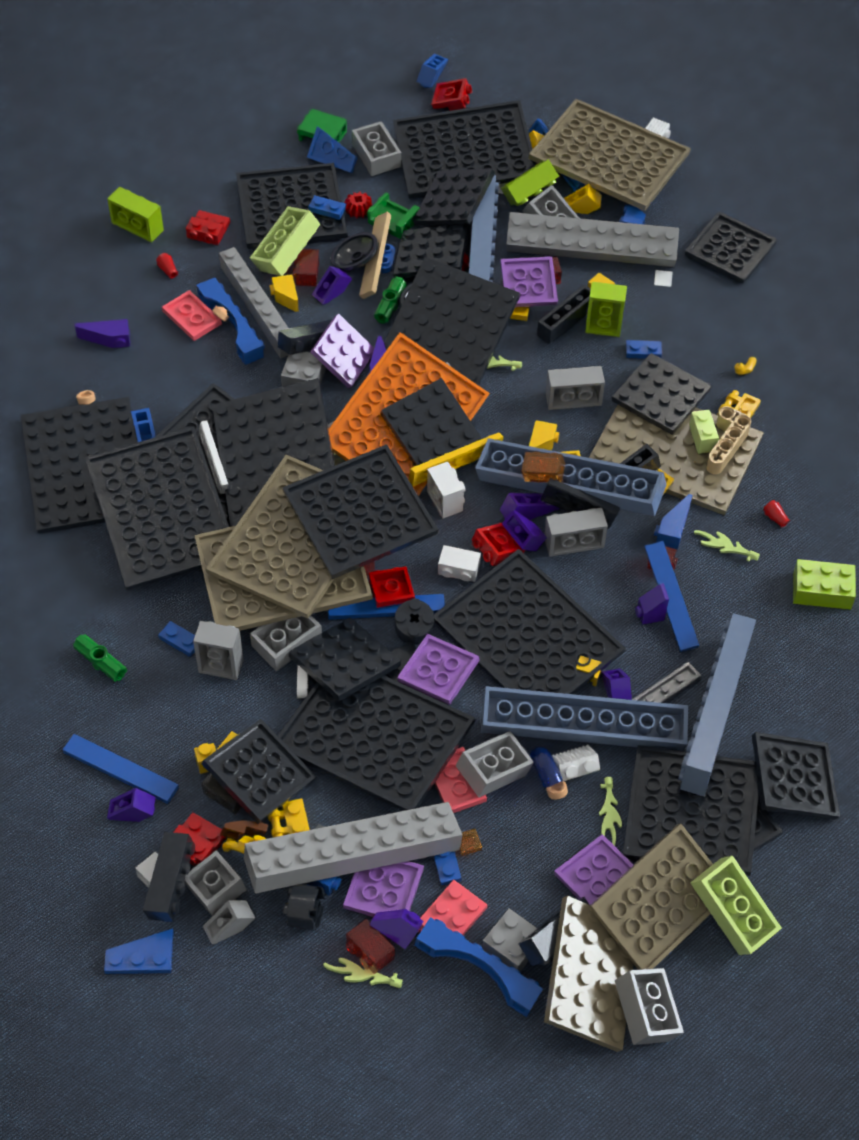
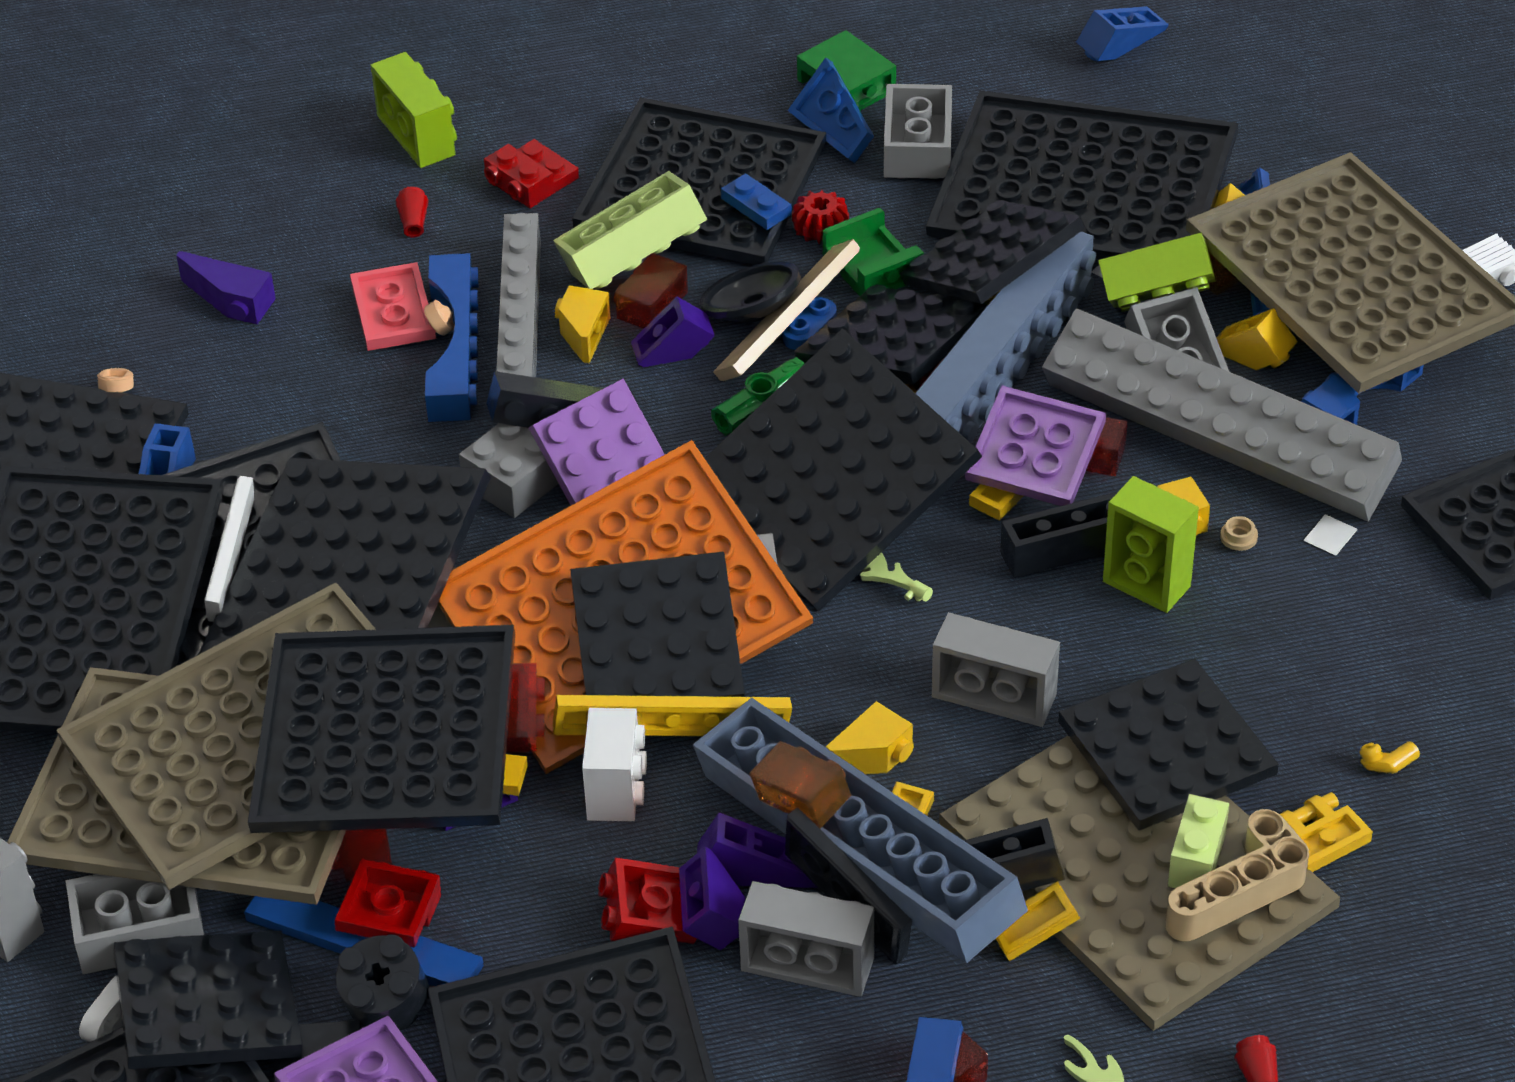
camera: 30 degrees right, 10 degrees down
(452, 94) = (1128, 83): red plate -> none
(459, 563) = (549, 912): white brick -> none
(631, 291) = (1239, 533): none -> tan plate
(642, 349) = (1182, 644): blue plate -> none
(673, 524) = (1027, 1003): slope -> none

